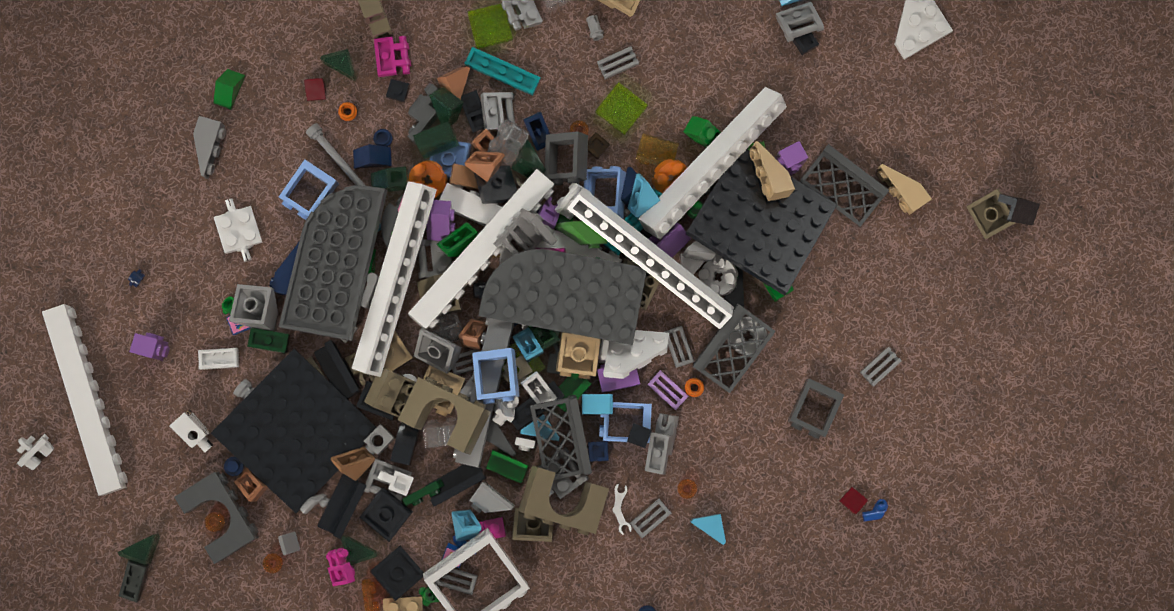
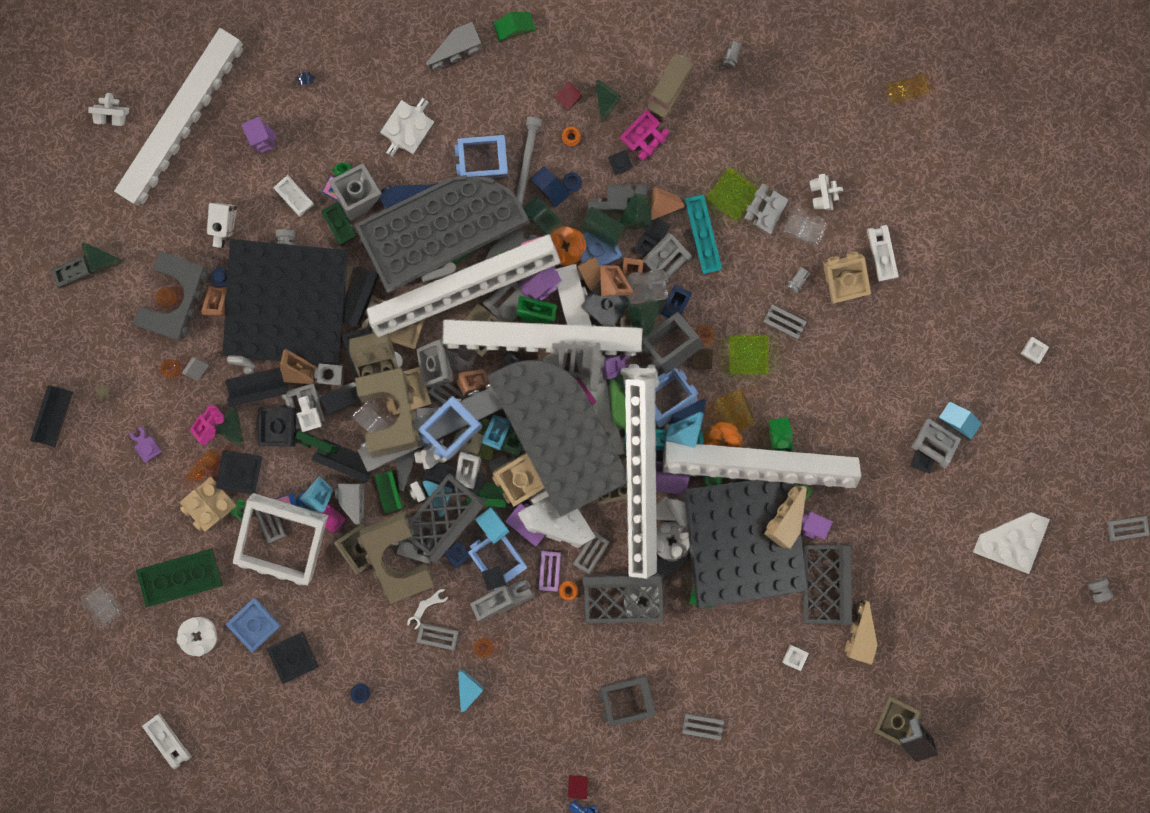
camera: 50 degrees right, 5 degrees up
(881, 254) = (795, 657): none -> white plate

